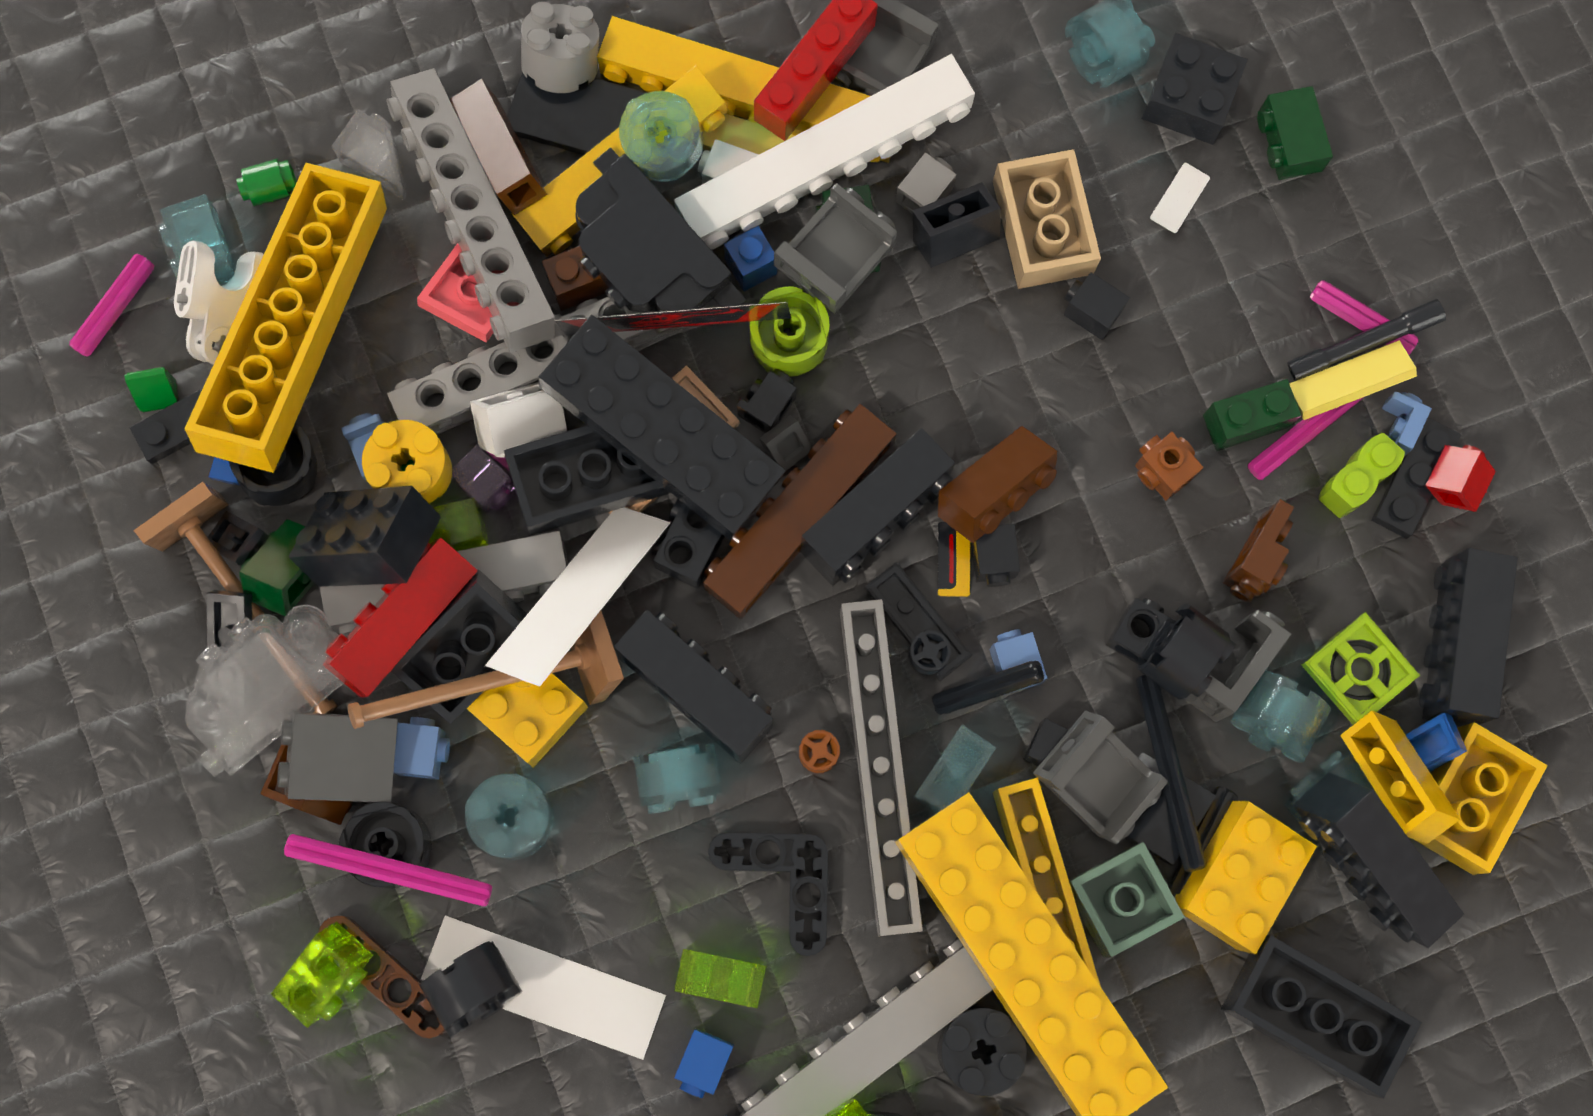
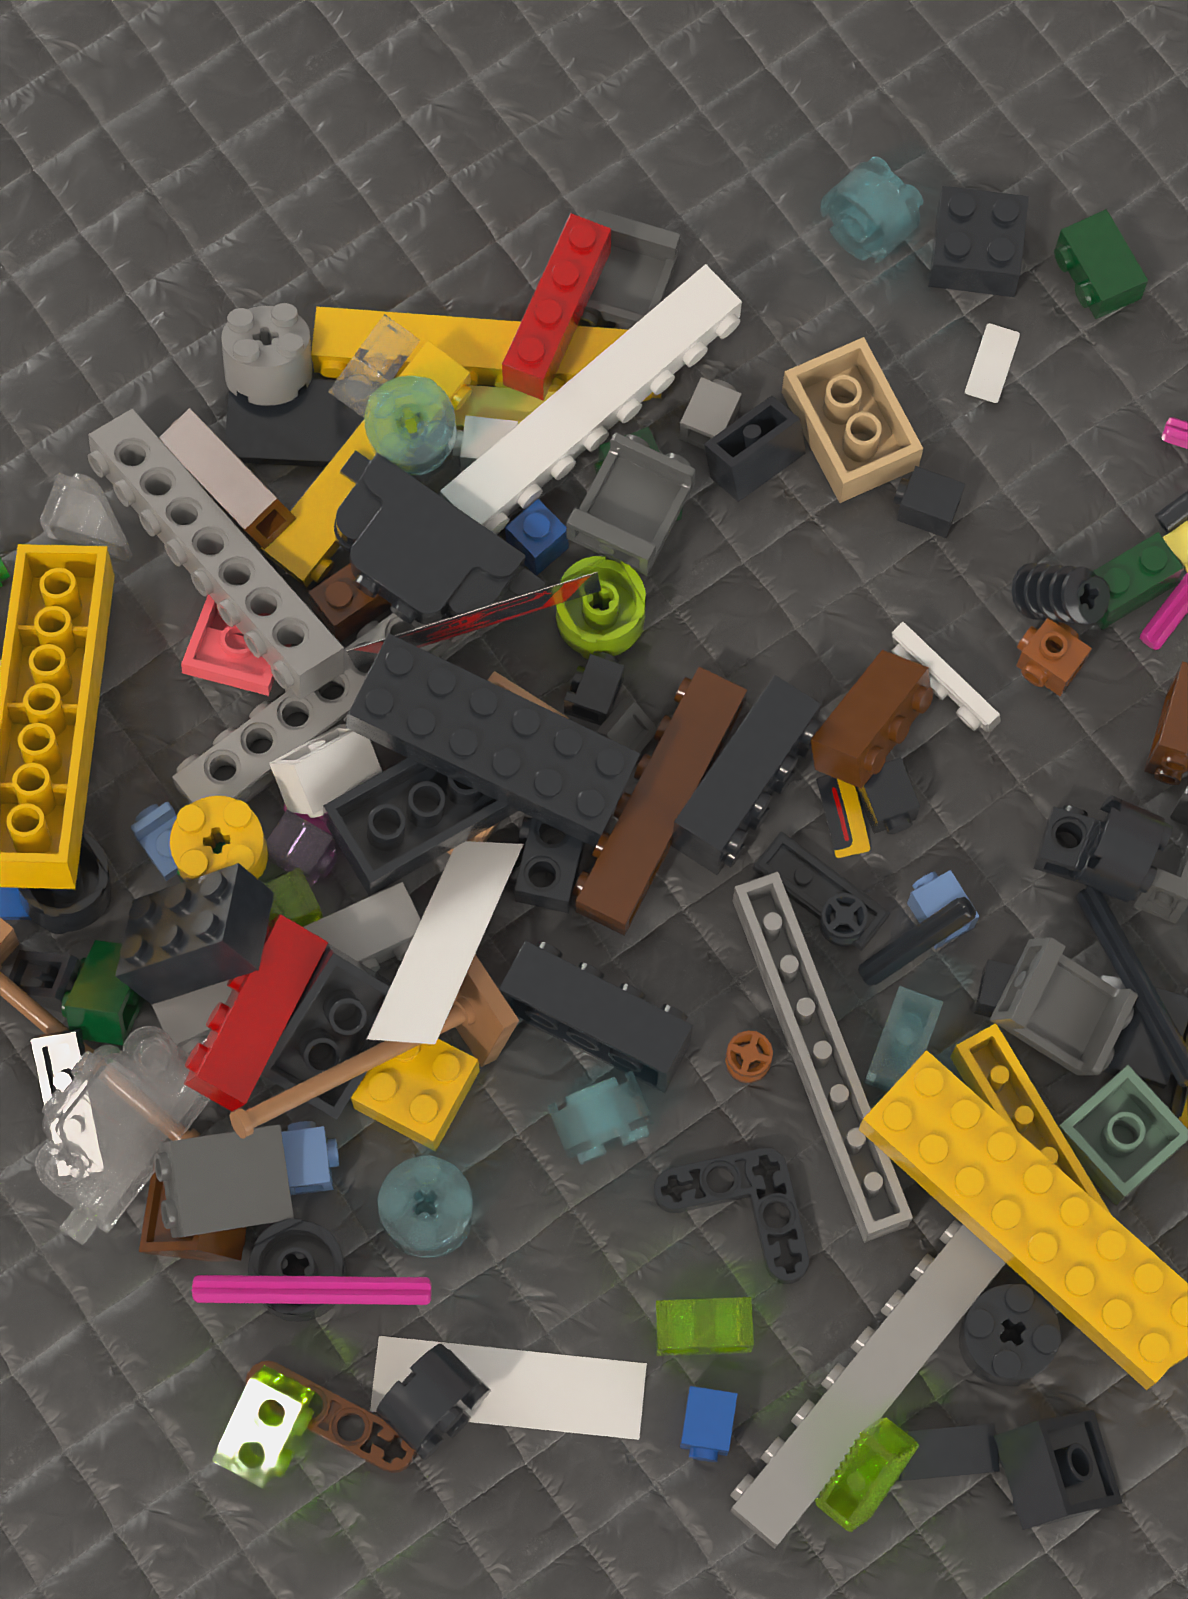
camera: 10 degrees left, 5 degrees down
(649, 72) = (374, 364): none -> clear slope
(1069, 464) = (945, 681): none -> white tile
(1188, 413) = (1060, 593): none -> black piece

